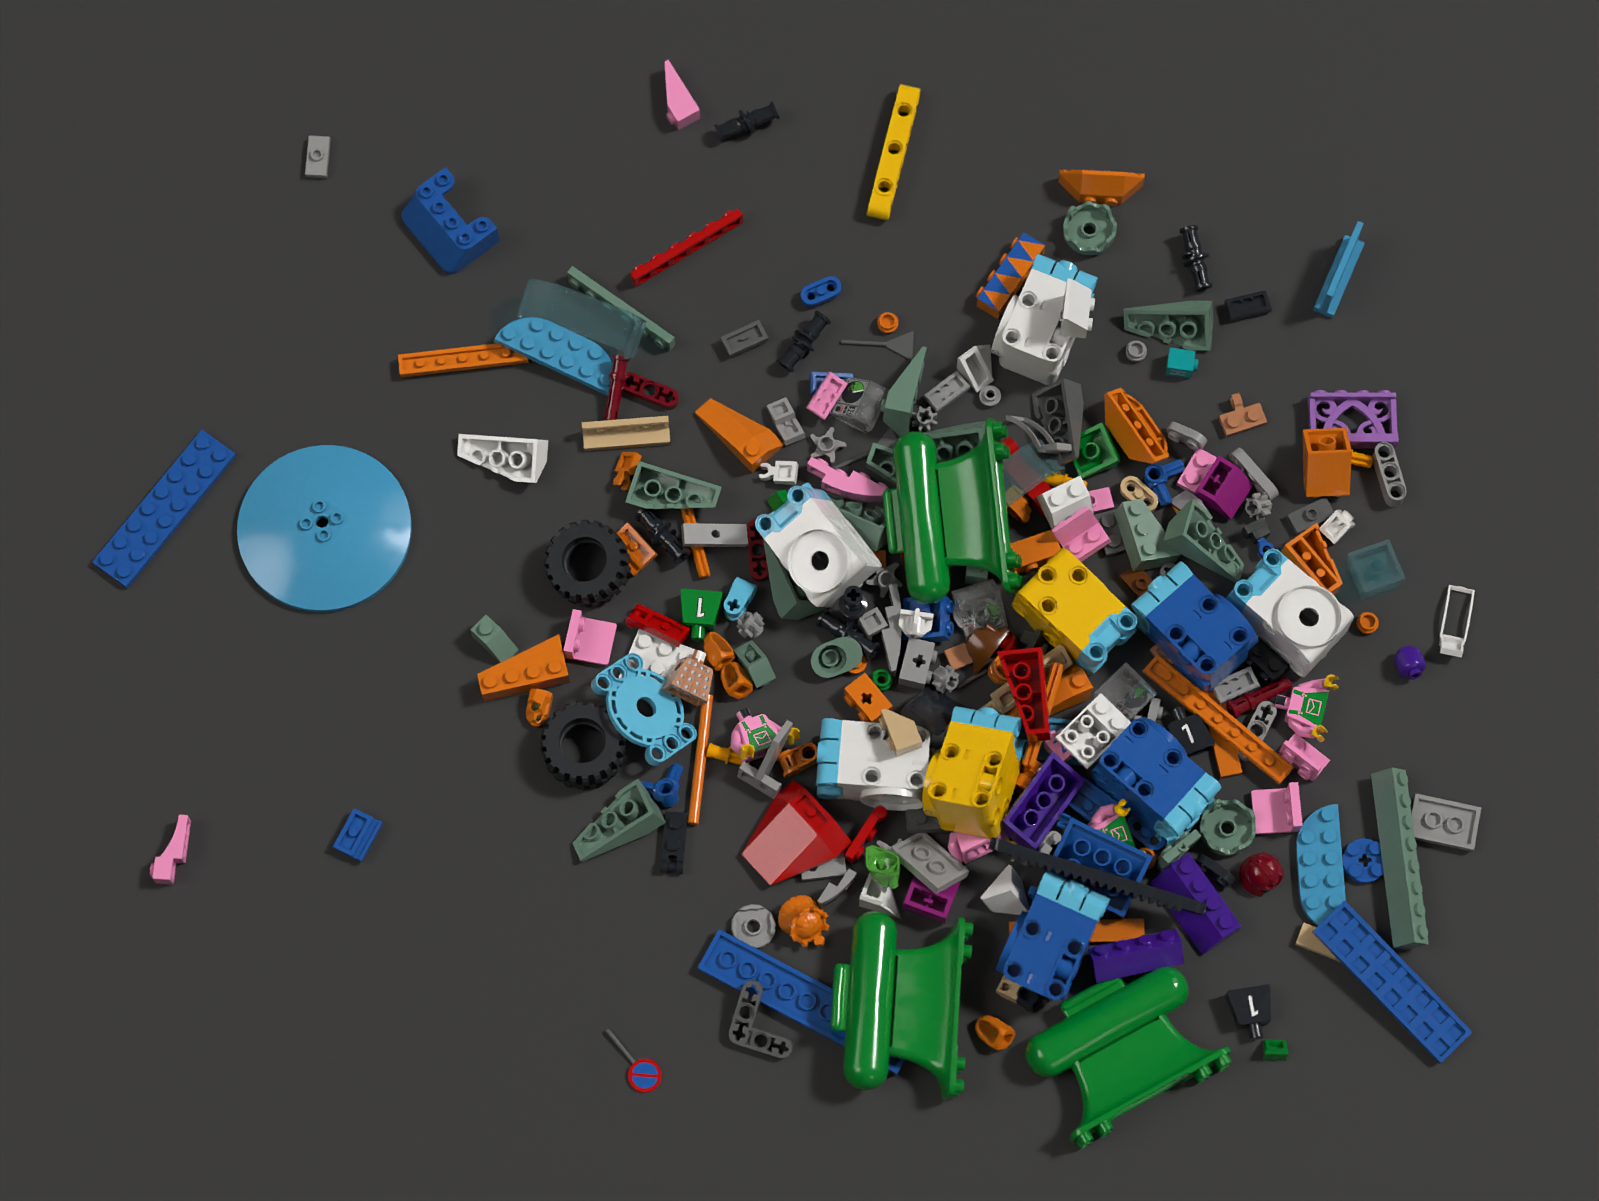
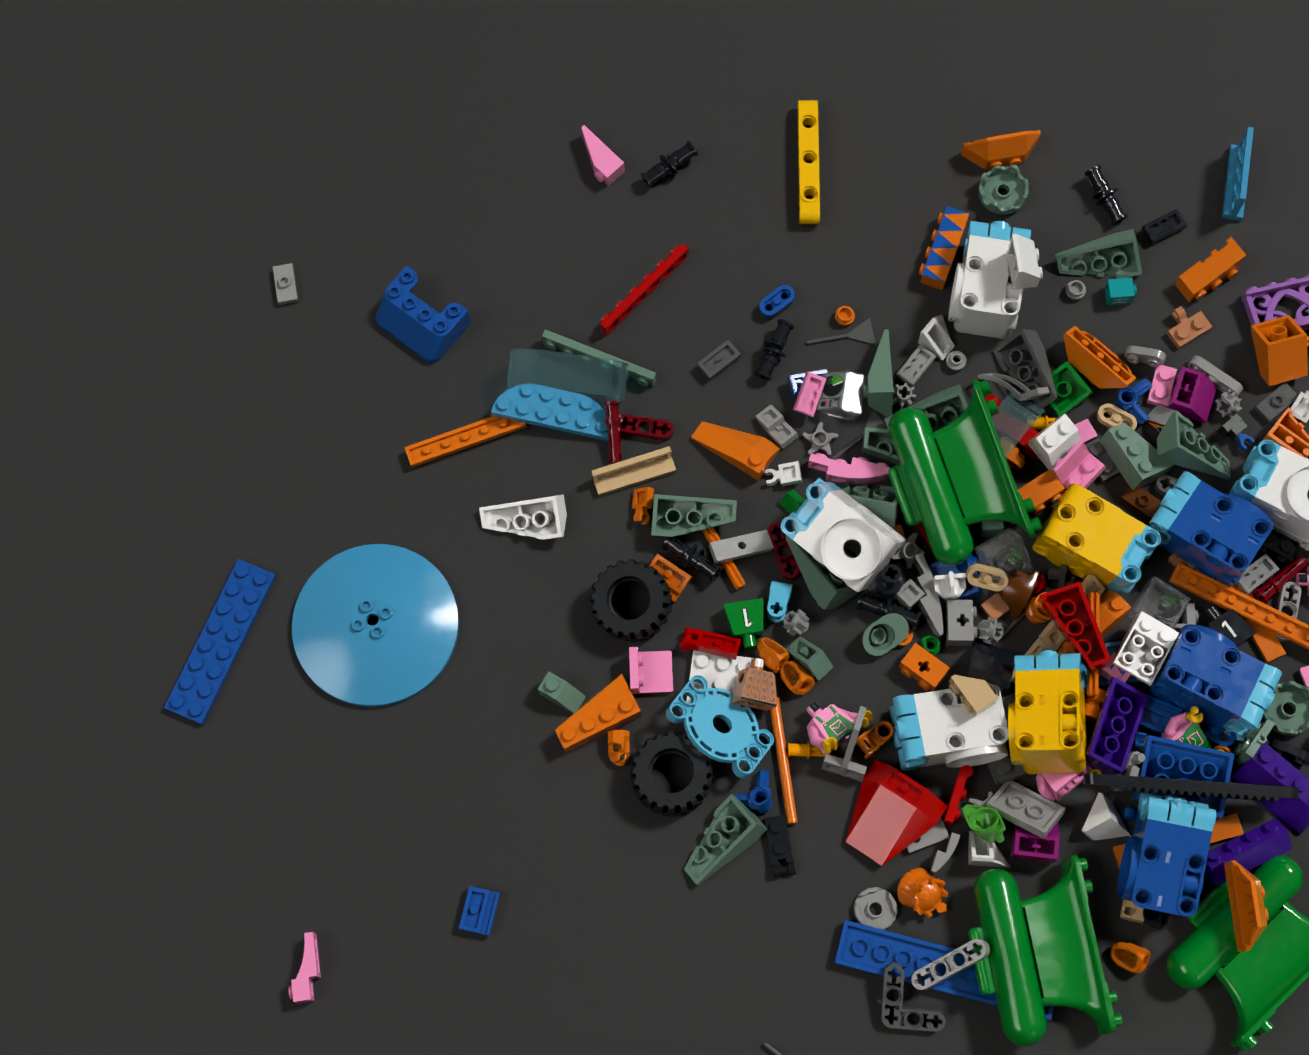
camera: 10 degrees left, 0 degrees up
(808, 993) = (949, 962): none -> light grey beam
(953, 624) = (985, 577): none -> tan plate
(1117, 1002) = (1246, 905): none -> orange wedge
(1281, 364) = (1211, 272): none -> orange wedge

